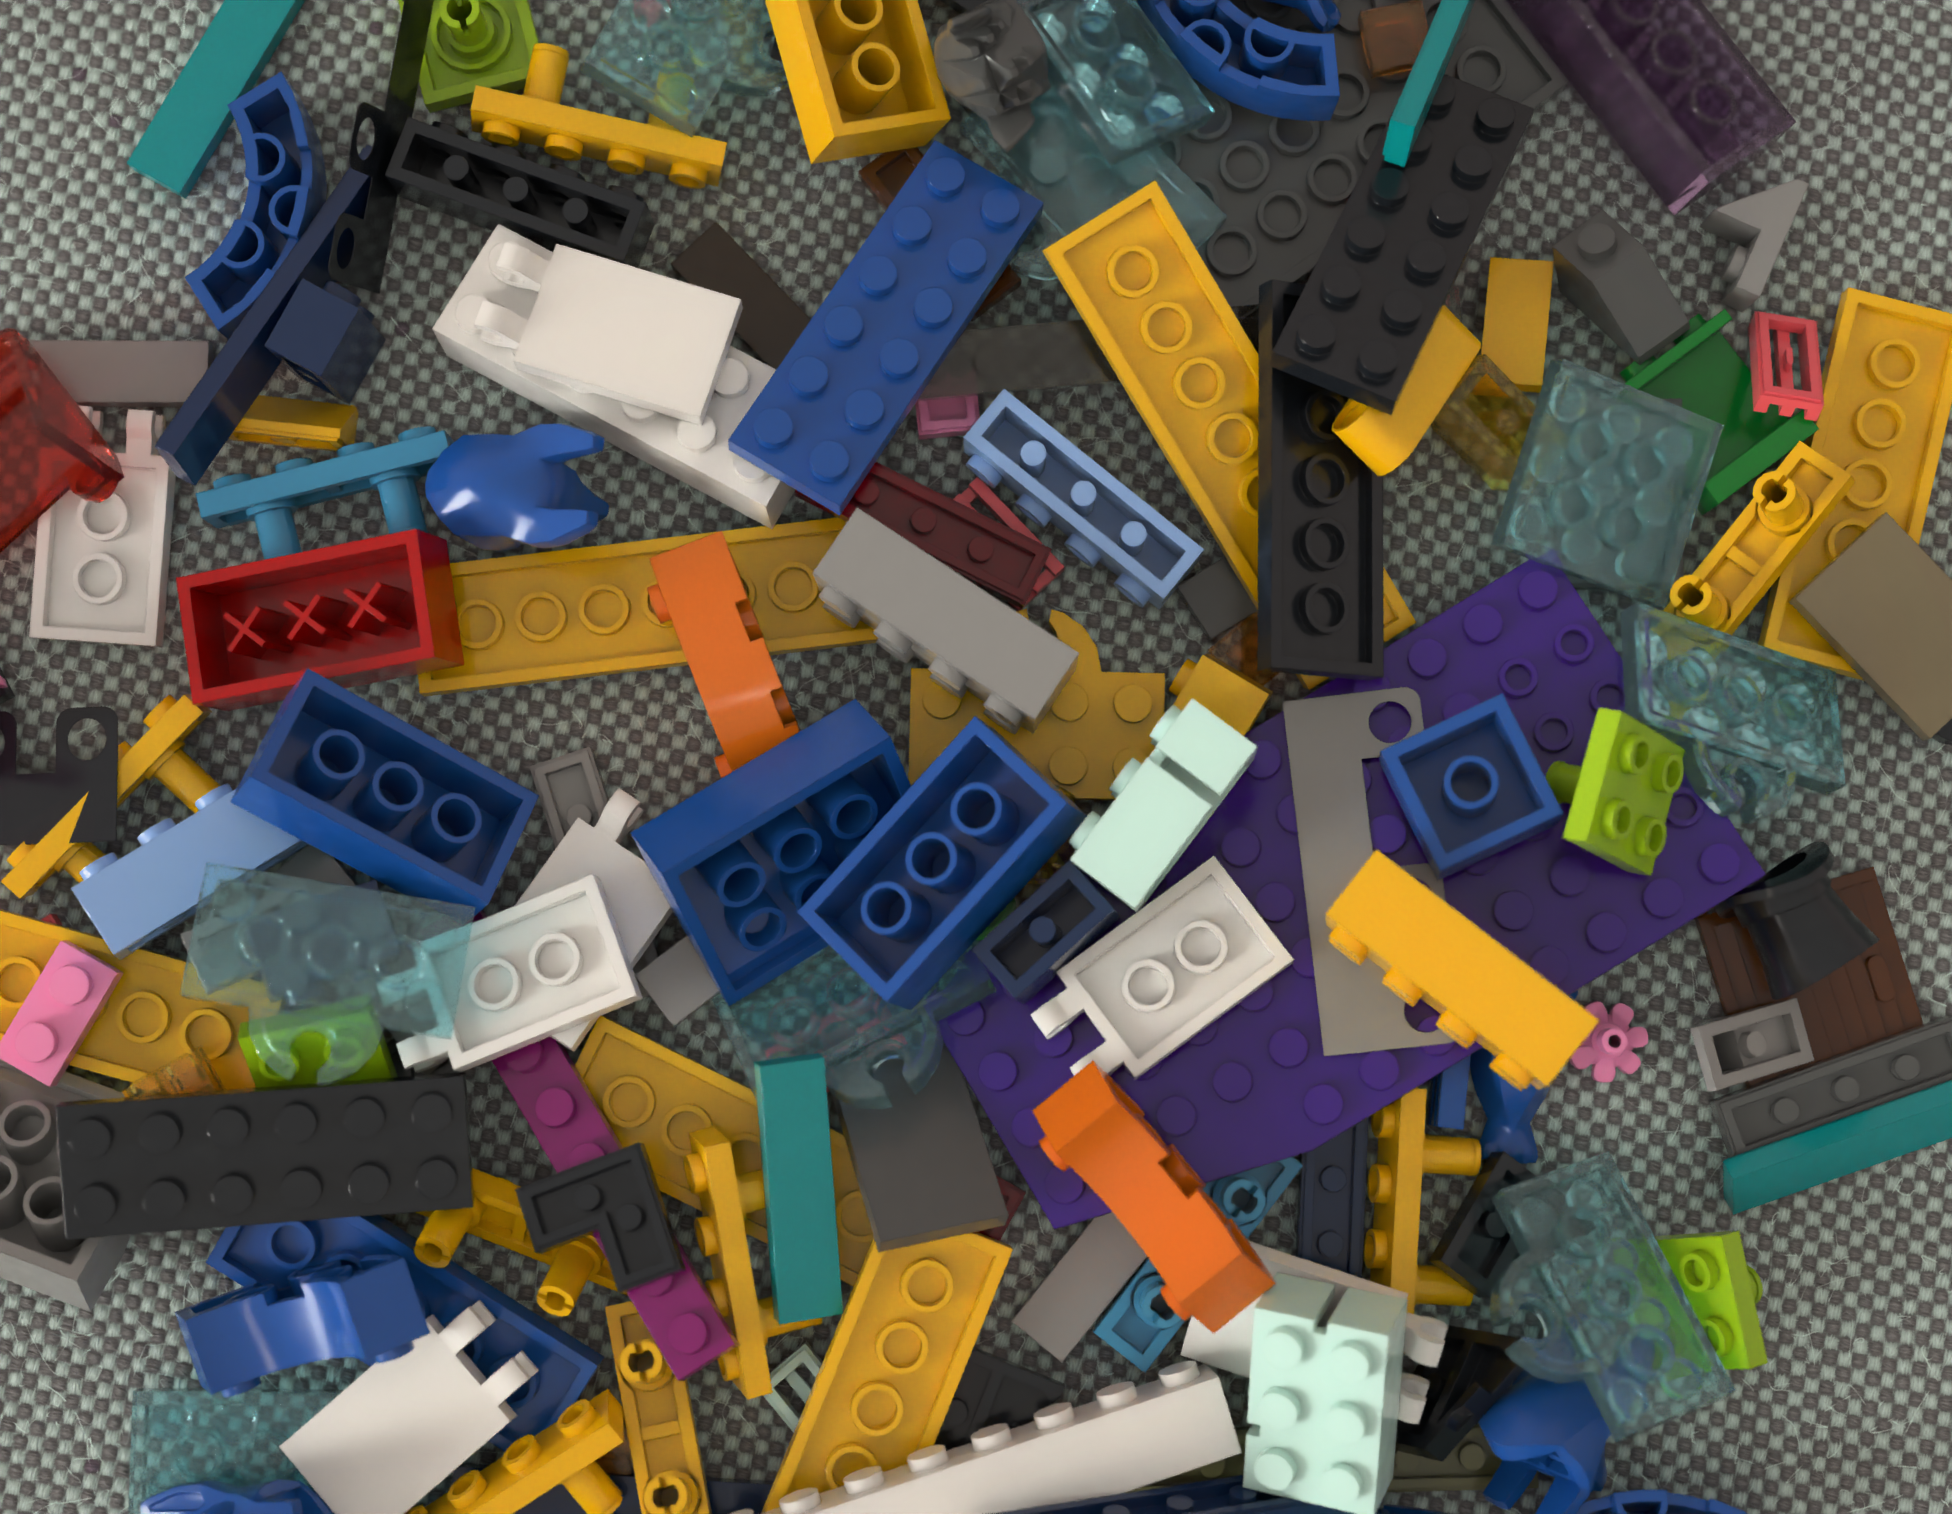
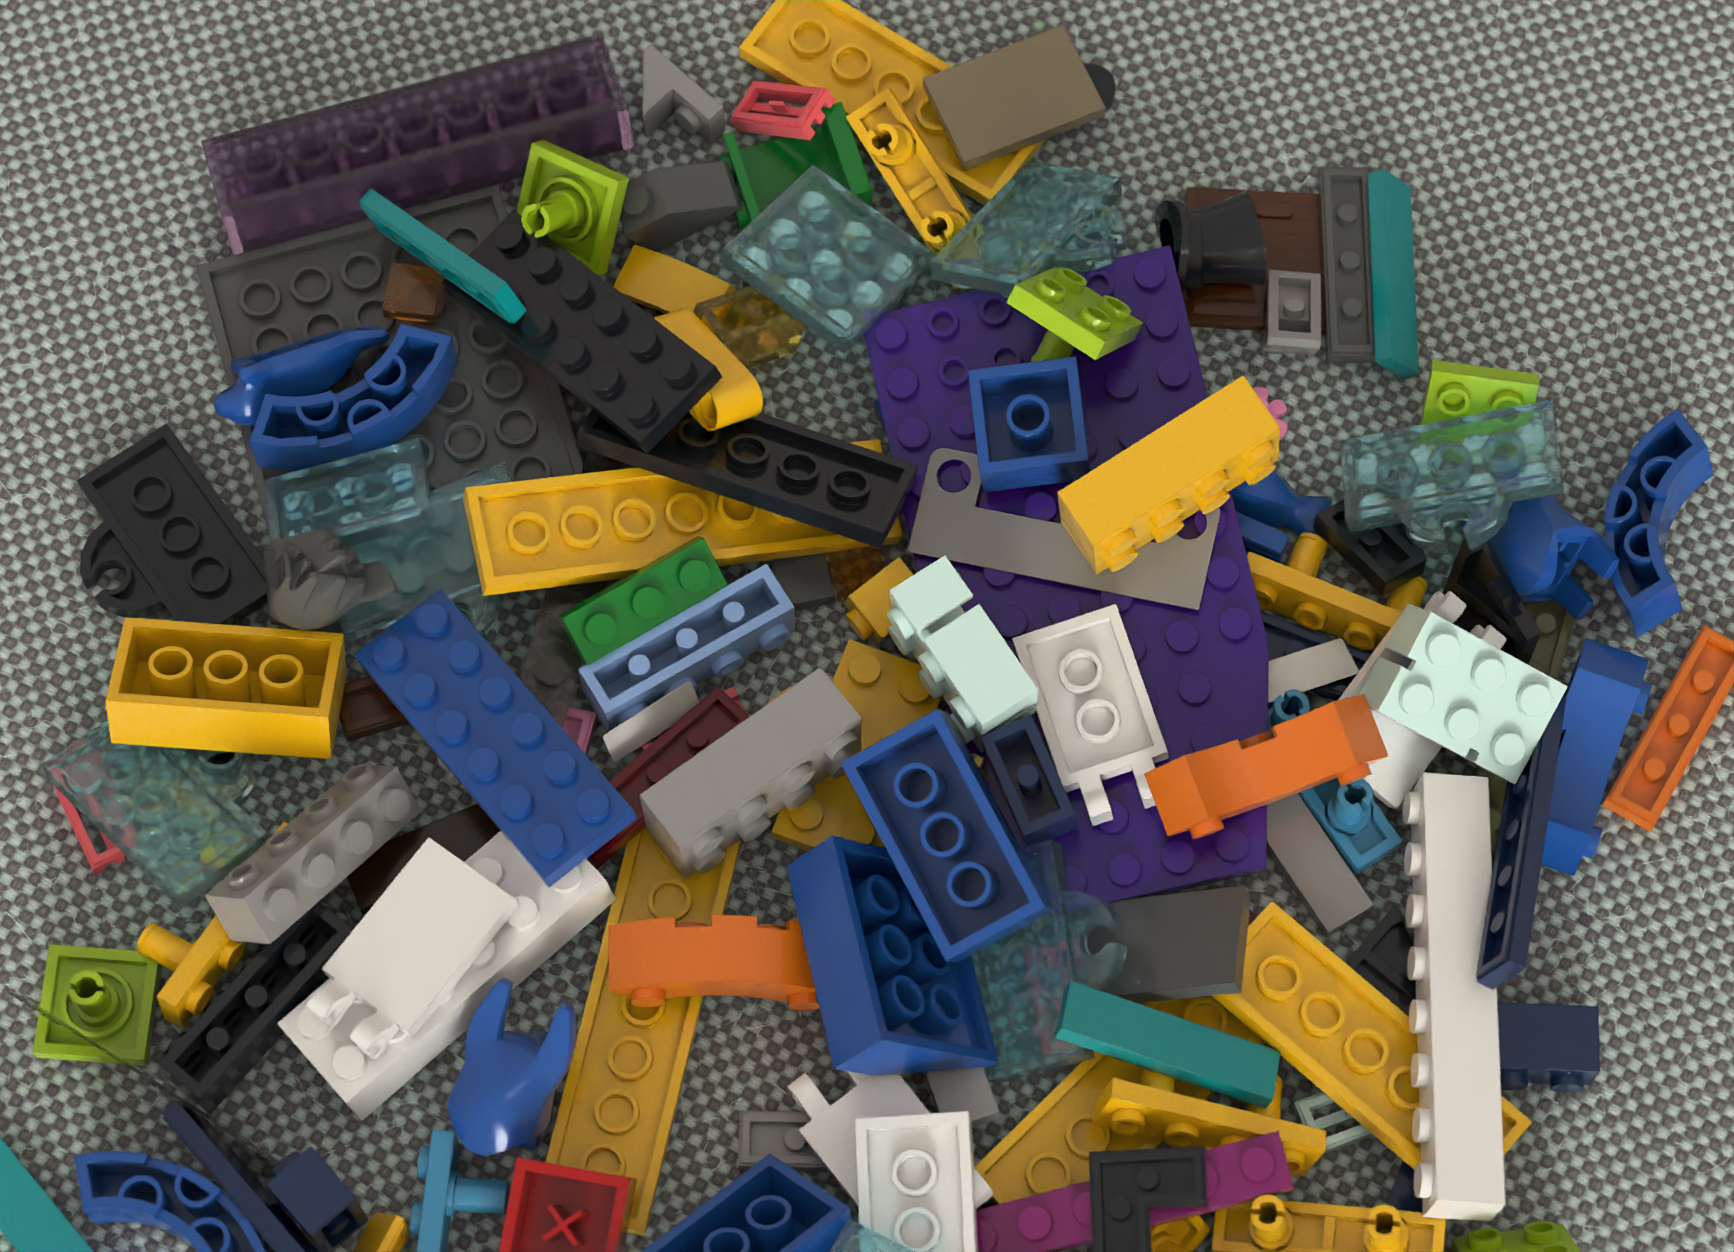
camera: 70 degrees left, 15 degrees down
(692, 186) = (313, 853): none -> light grey brick
(984, 491) = (650, 721): none -> white sticker
(1107, 428) = (642, 600): none -> green plate
(1313, 1203) = (1310, 668): none -> white sticker
(1563, 169) = (572, 203): none -> lime plate

